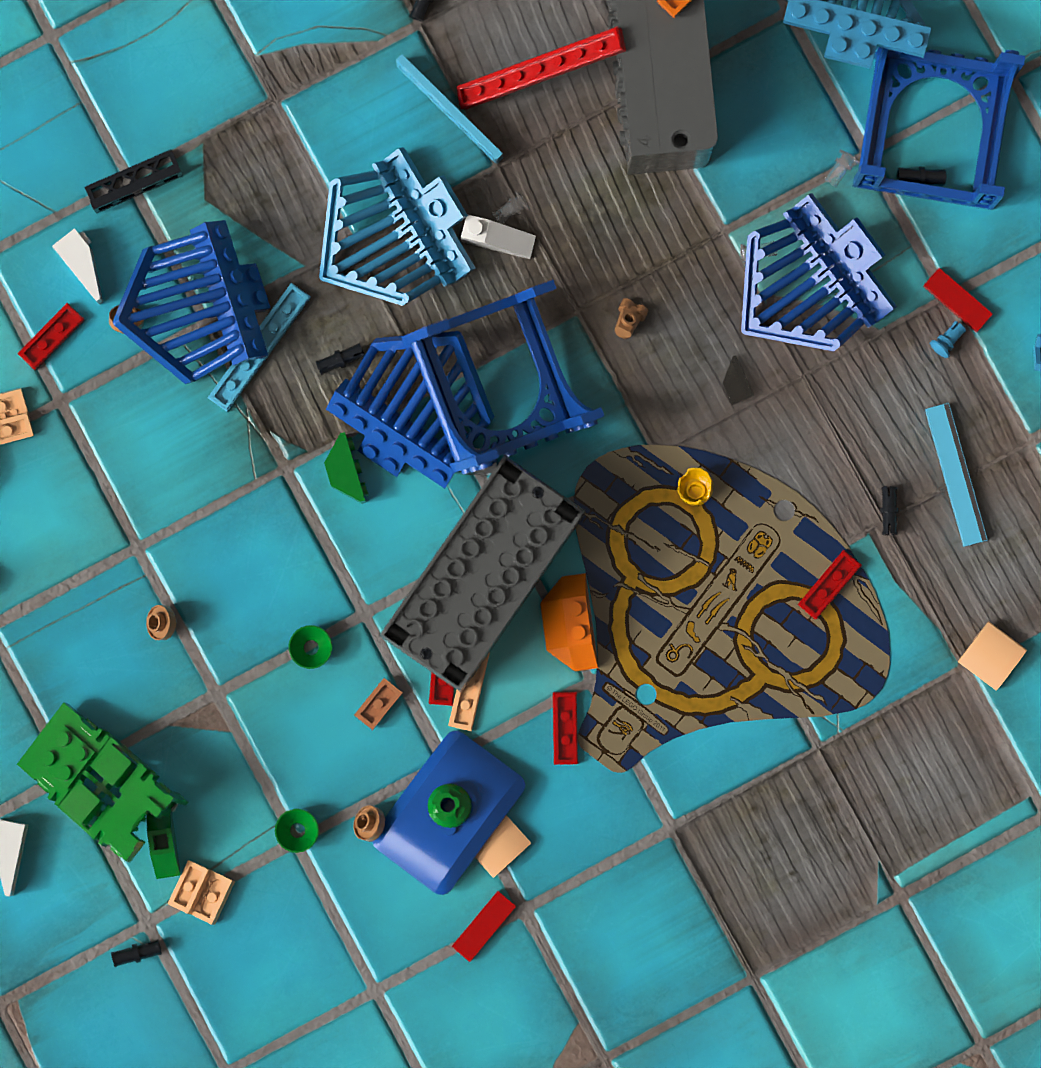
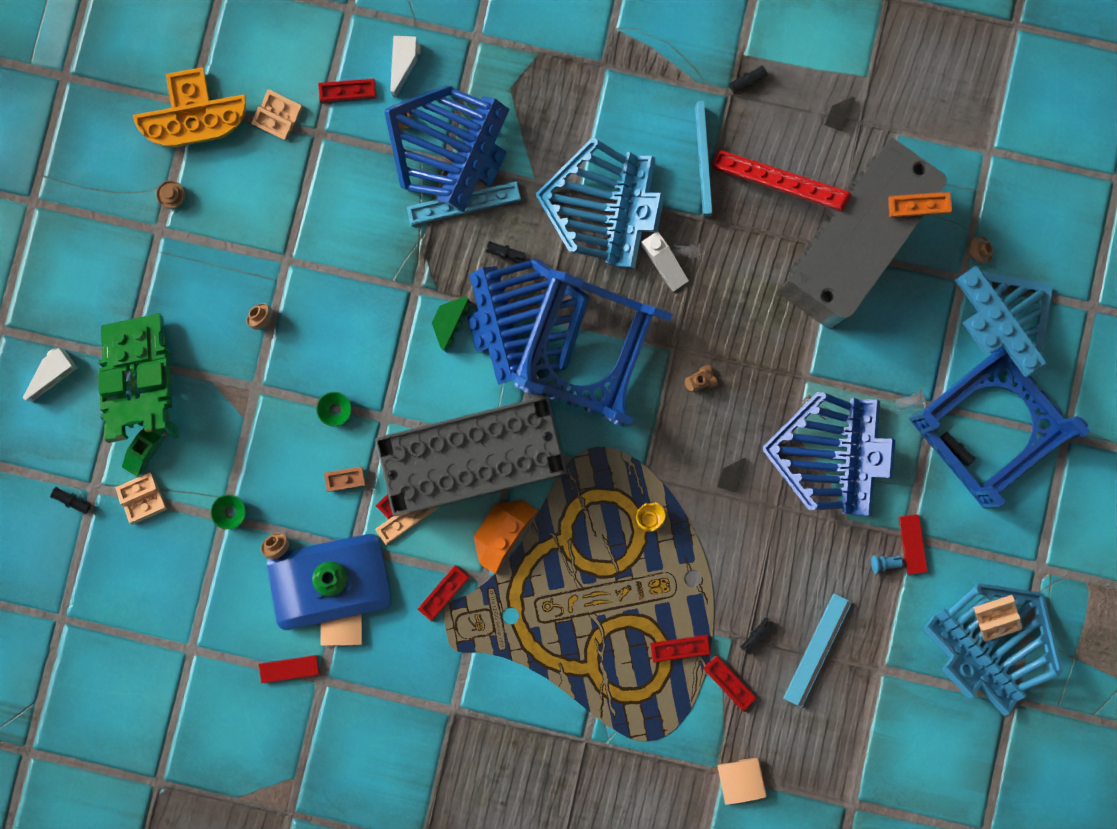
camera: 50 degrees right, 0 degrees up
(135, 187) = (476, 45): black fence -> none
(902, 576) = (729, 683): none -> red tile

